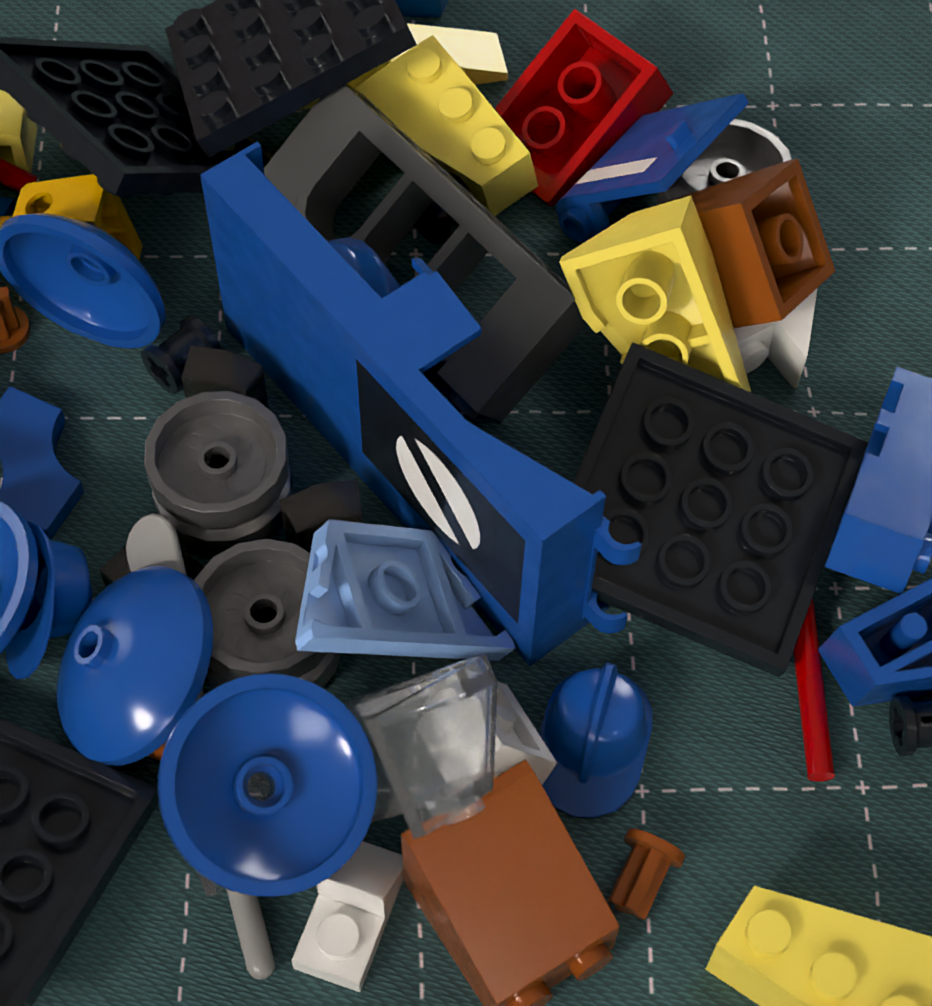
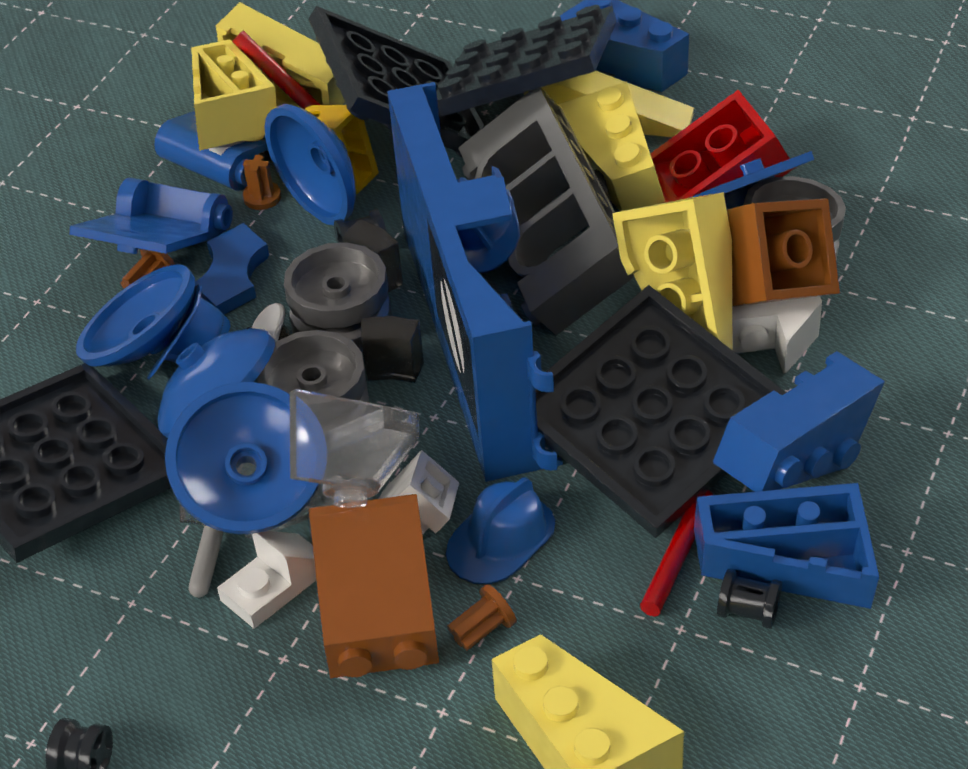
camera: 30 degrees right, 15 degrees down
(391, 596) = (399, 375): light blue wing -> none

